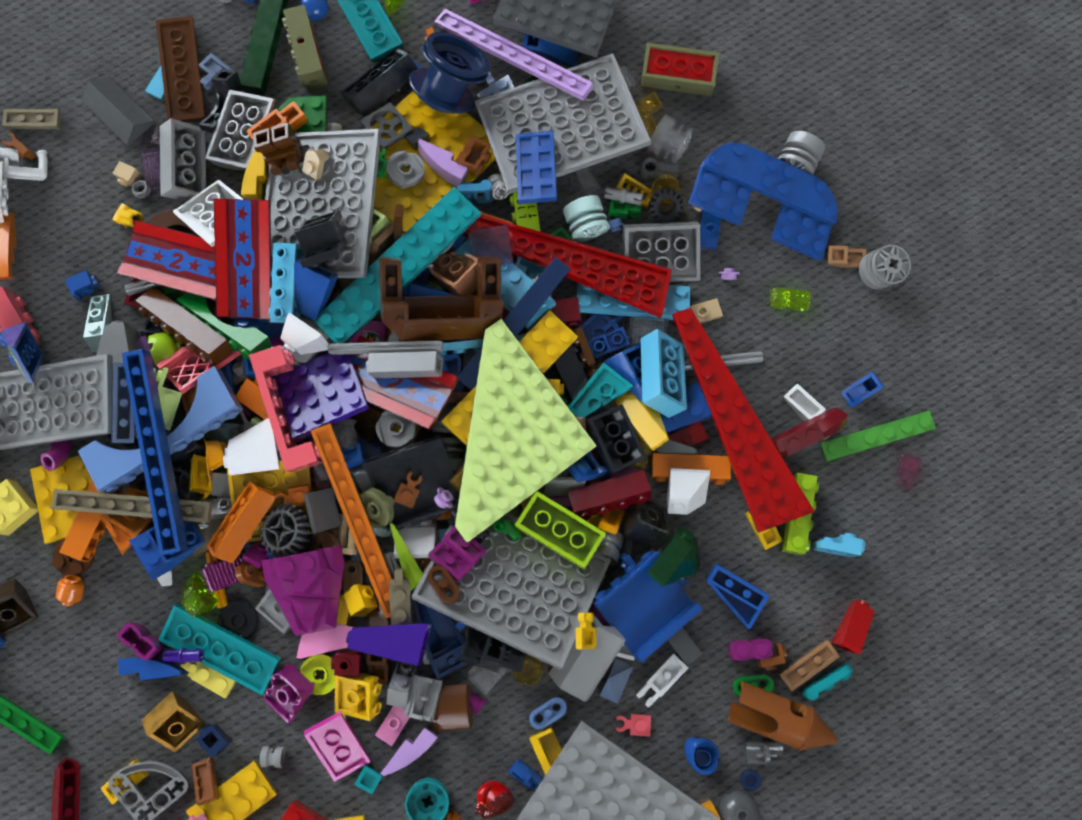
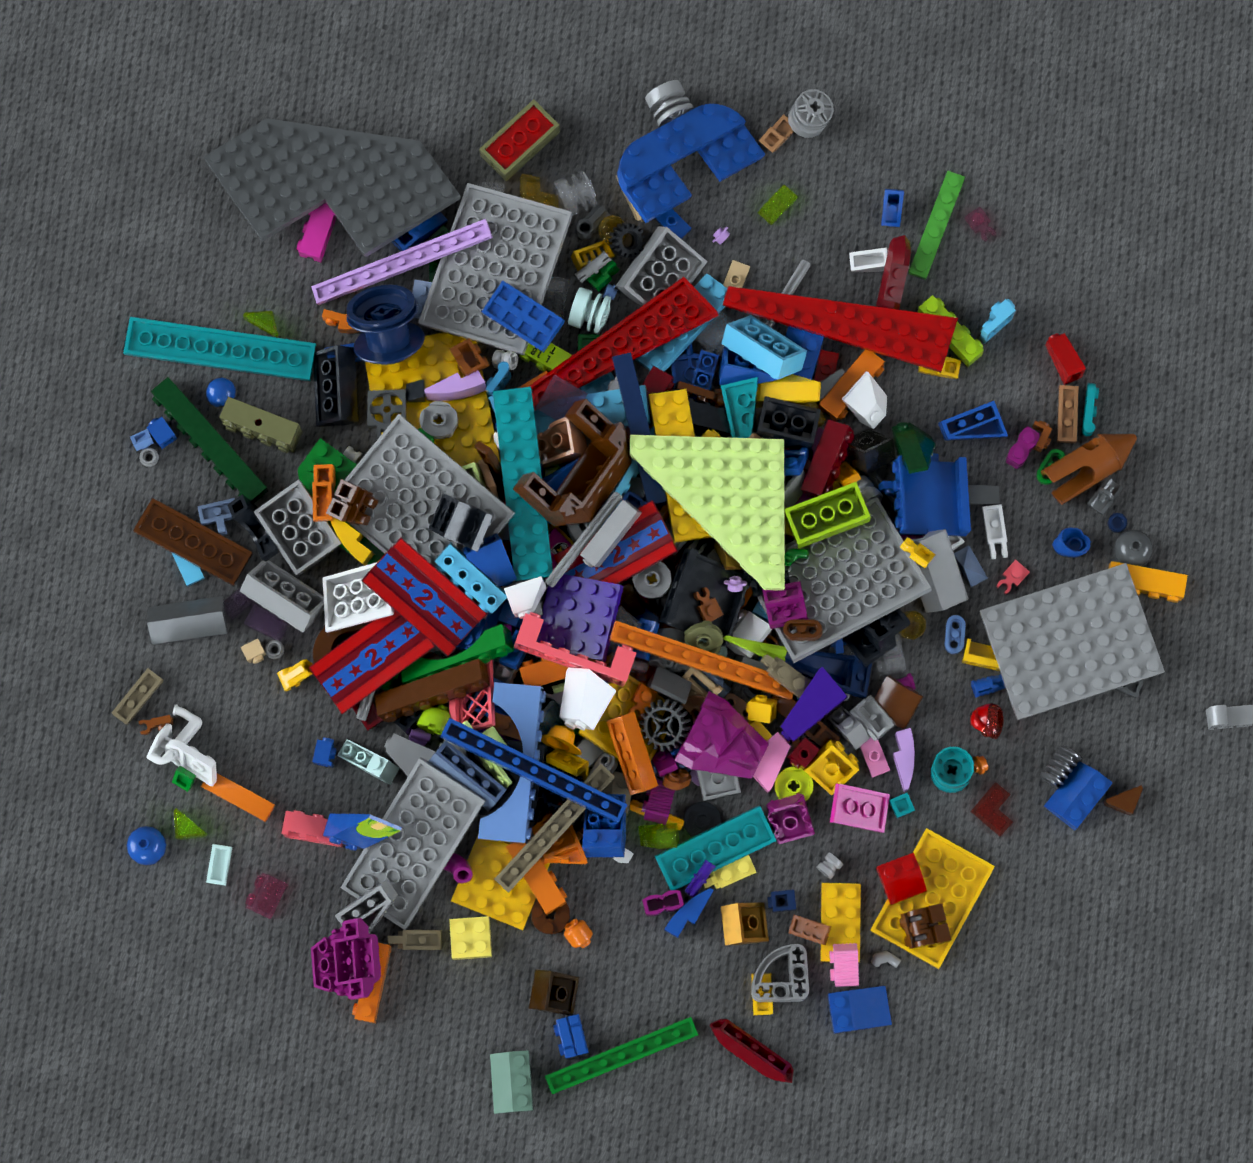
camera: 50 degrees left, 0 degrees up
(314, 162) = (387, 484): tan plate -> none

